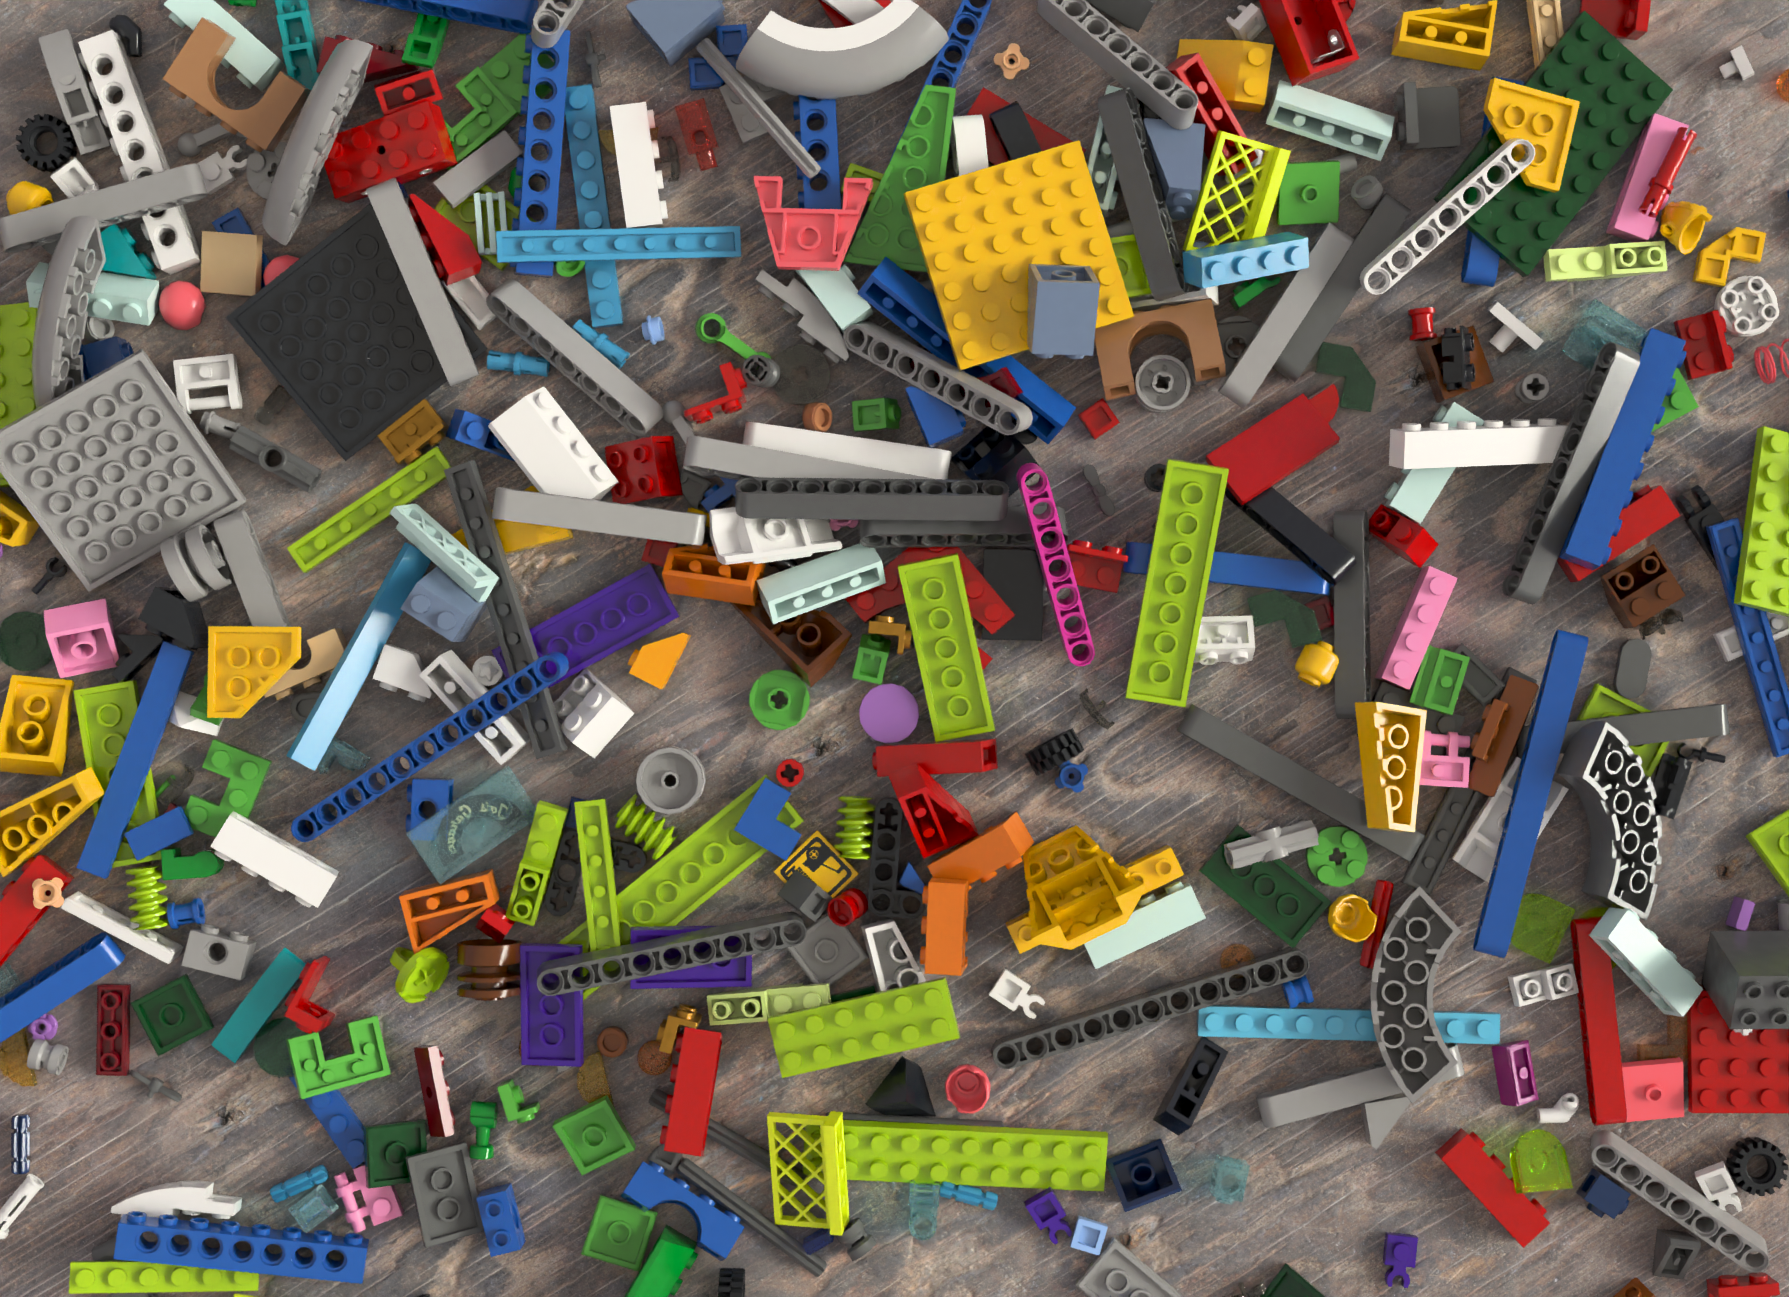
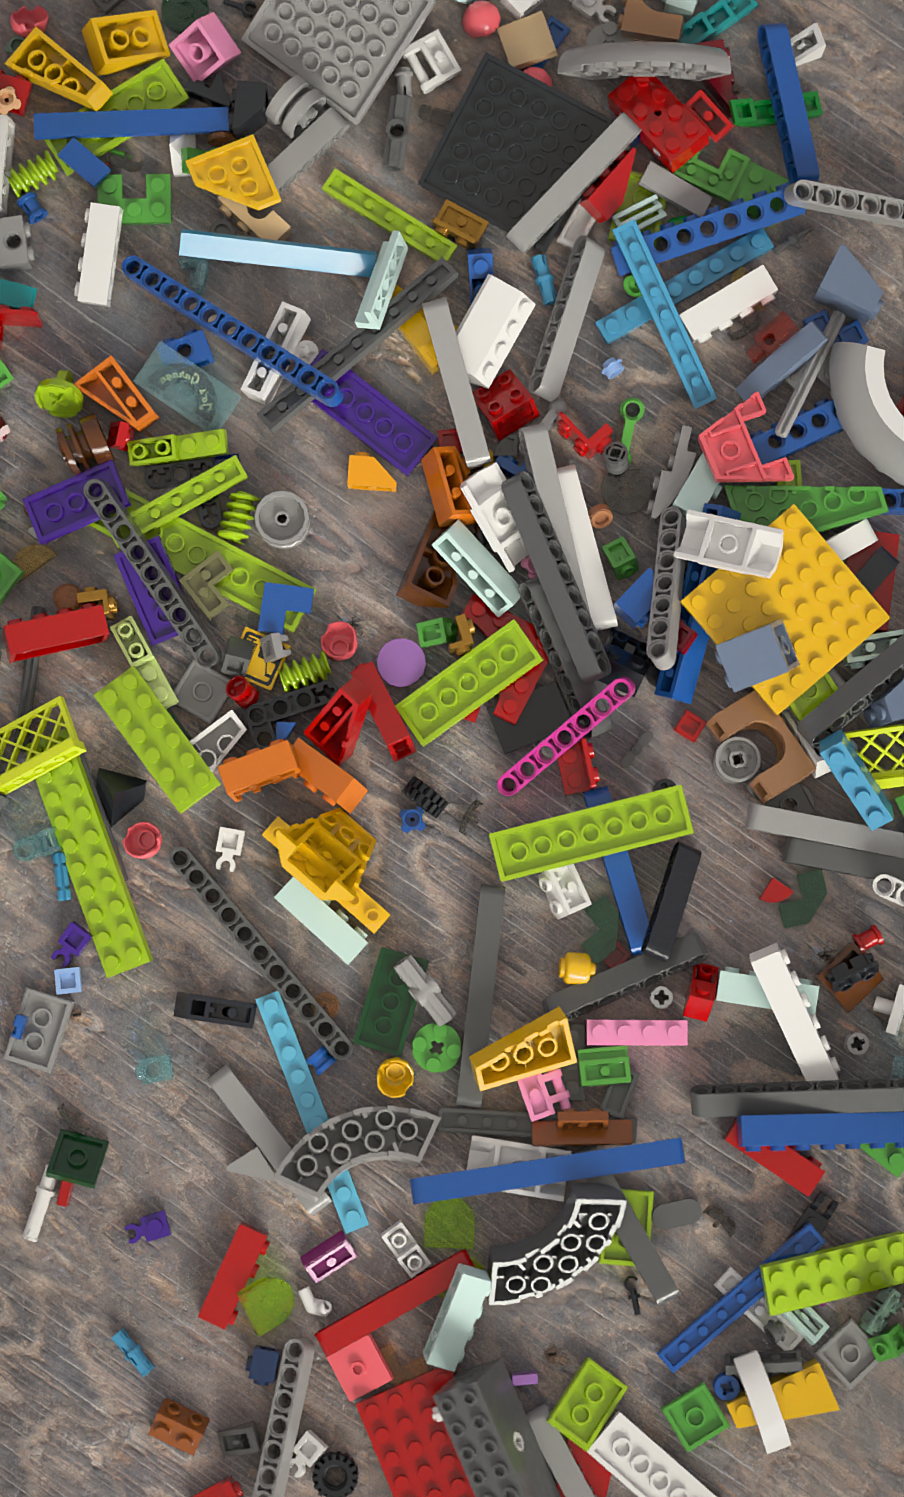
camera: 65 degrees right, 5 degrees down
(189, 866) = (72, 202): green leg -> none
(197, 663) = (220, 138): none -> clear orange piece
(401, 670) = (279, 287): white slope -> none
(444, 606) = (340, 299): sand blue slope -> none
(590, 713) = (306, 440): white slope -> none
(602, 344) = (586, 333): dark azure pin -> none
(612, 1041) = (66, 561): dark orange tile -> none
(703, 901) = (201, 584): none -> olive plate
(732, 132) = (784, 361): none -> sand blue slope
(765, 709) = (364, 569): bright green plate -> none
(784, 780) = (323, 614): red bush -> none
(811, 851) = (273, 648): none -> light grey tile
(836, 773) = (339, 641): none -> coral hair
(922, 285) = (731, 544): none -> white piece
(1143, 1175) = (132, 1001): dark blue slope -> none
(1247, 292) = (833, 796): green plate -> none
(1273, 448) = (724, 865): red tile -> none
(1380, 907) = (410, 1098): red axle -> none
(1396, 580) = (655, 991): none -> light grey bush
(1640, 587) = (741, 1190): reddish brown slope -> none
(1670, 784) = (600, 1280): black hinge -> none

